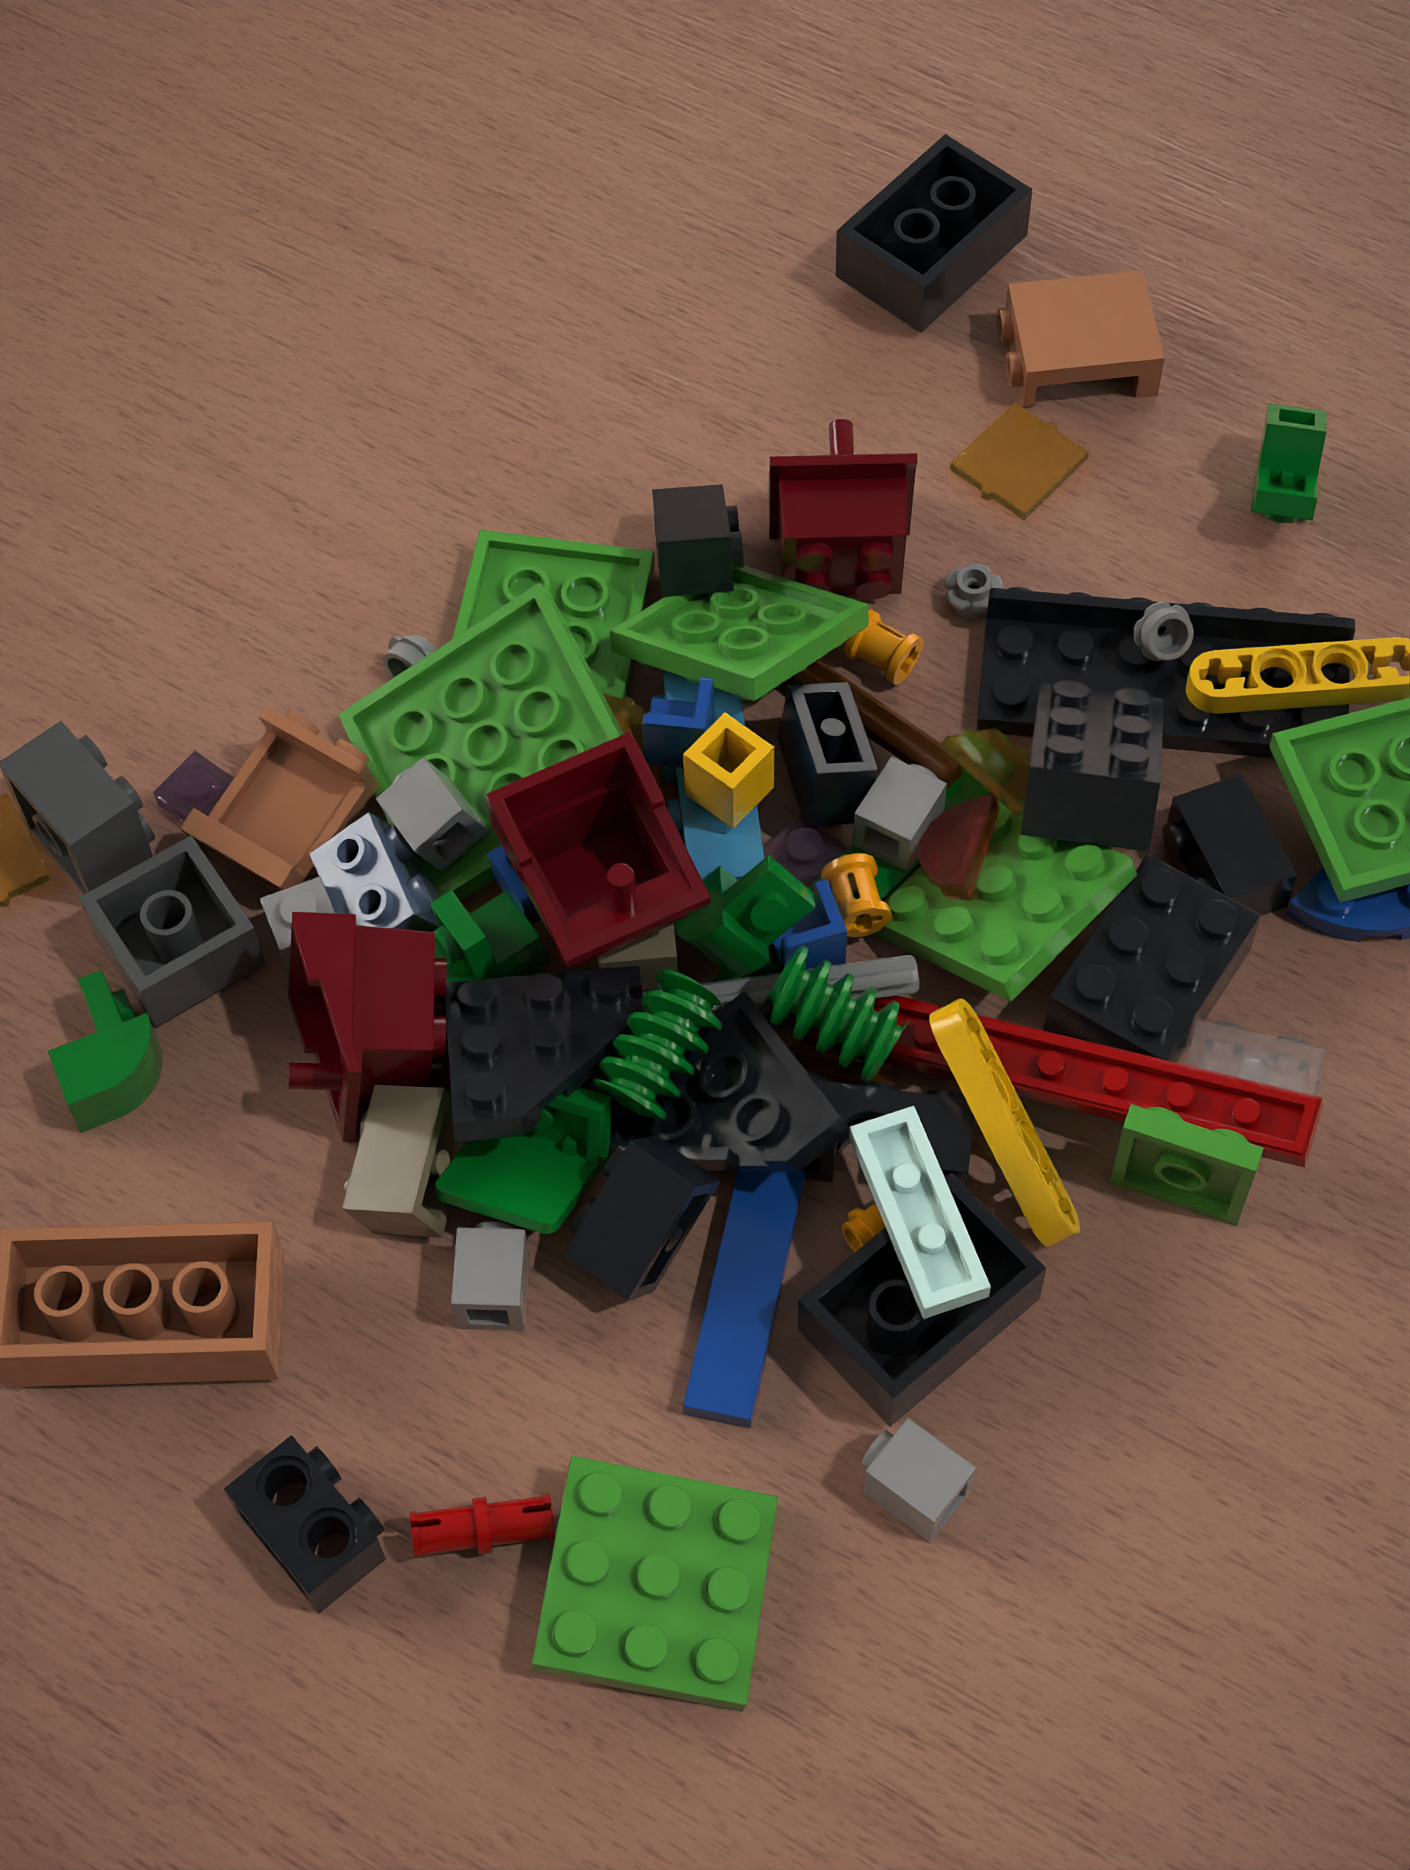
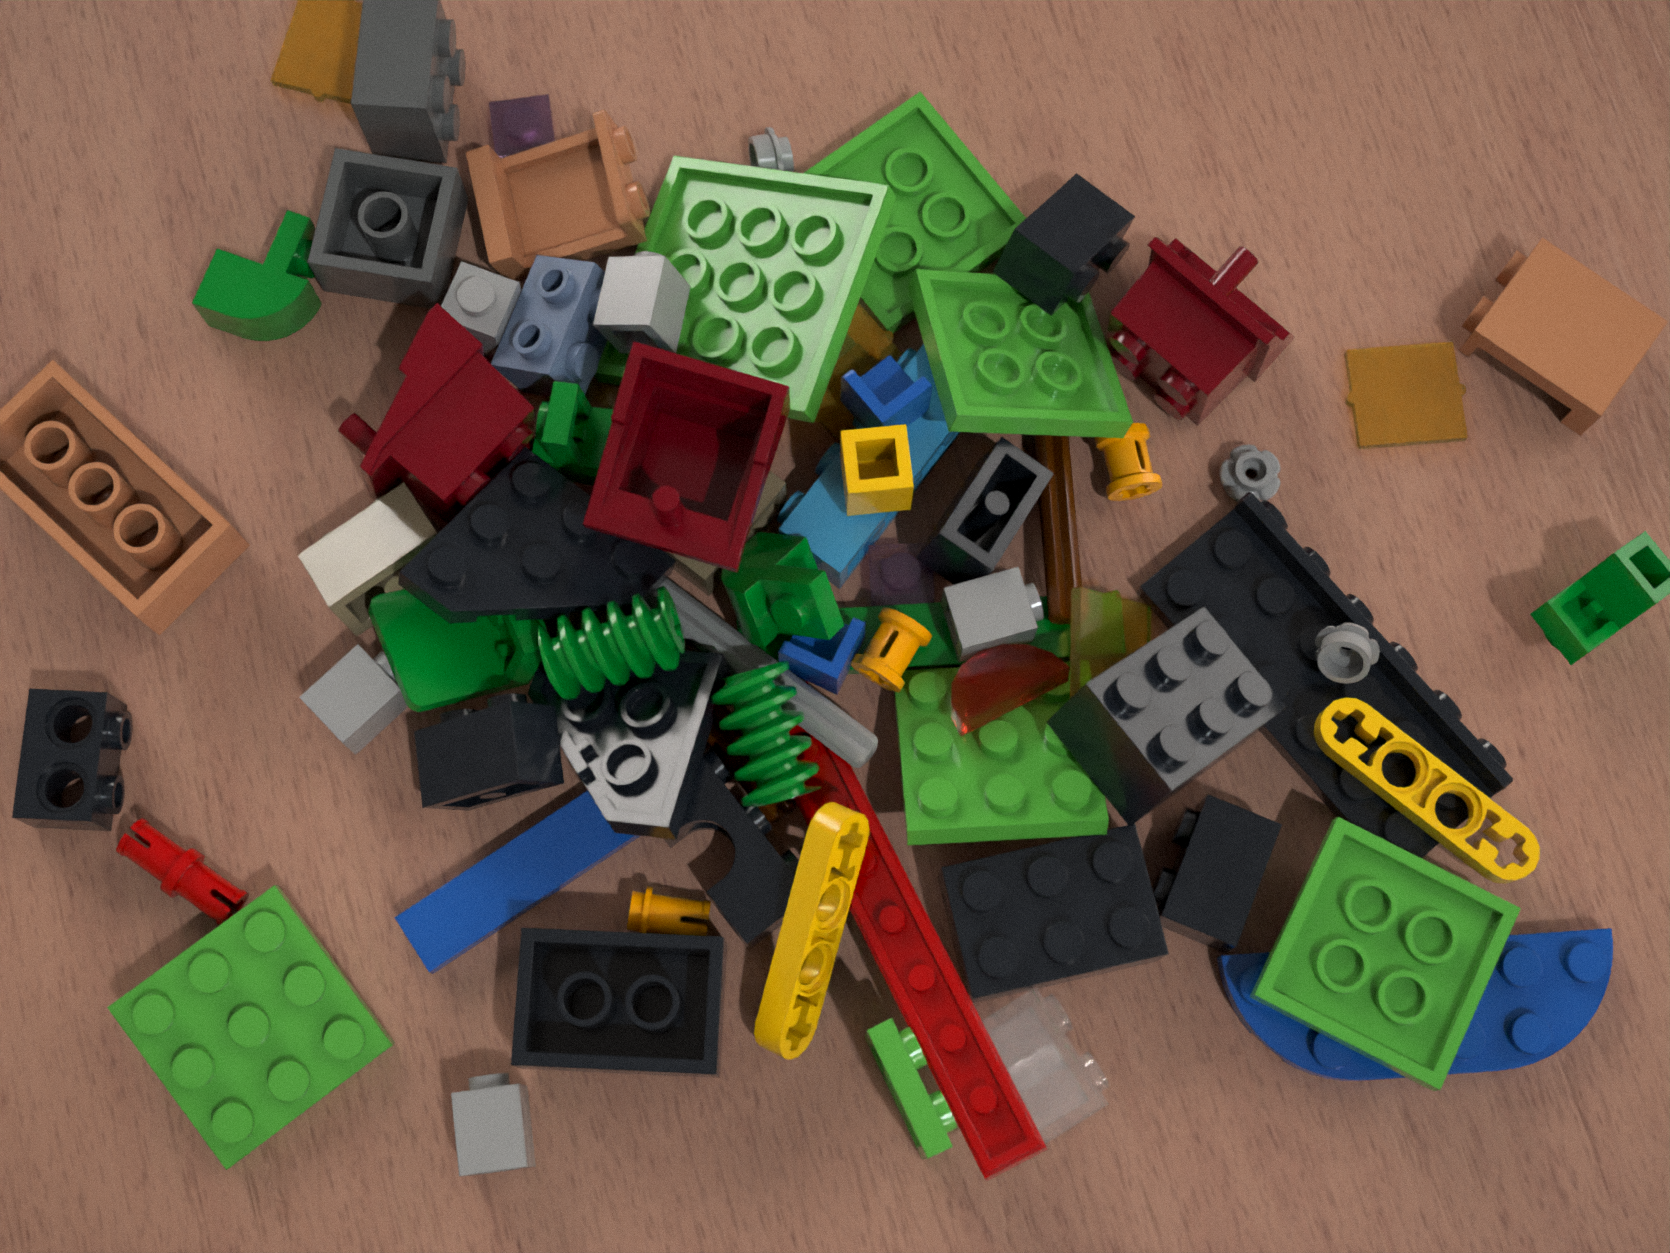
camera: 40 degrees right, 15 degrees up
(919, 1212) = (659, 948): light aqua plate -> none
(933, 232) = (1533, 136): black brick -> none

